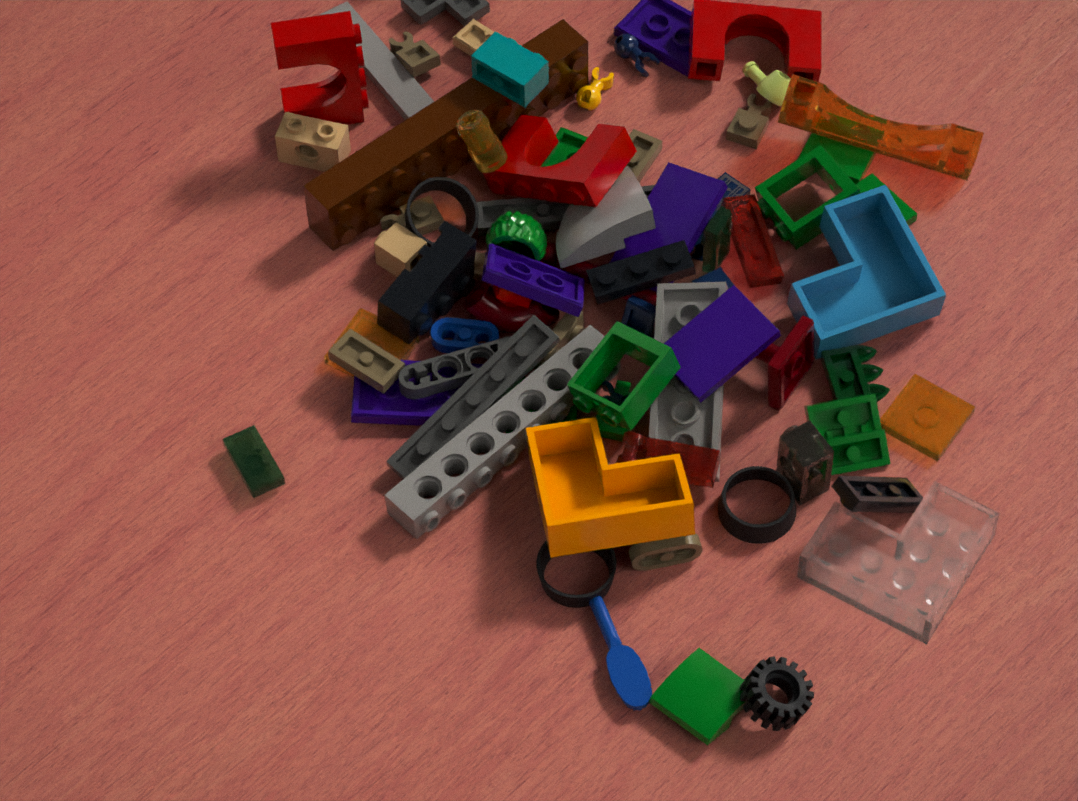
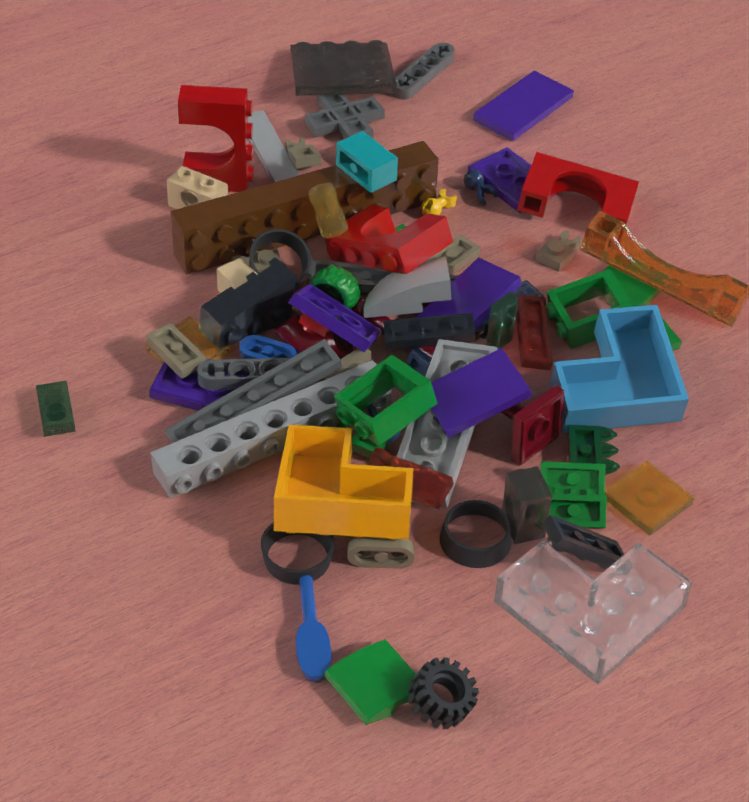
camera: 10 degrees right, 10 degrees down
(770, 87) = (578, 224): yellowish green bar -> none

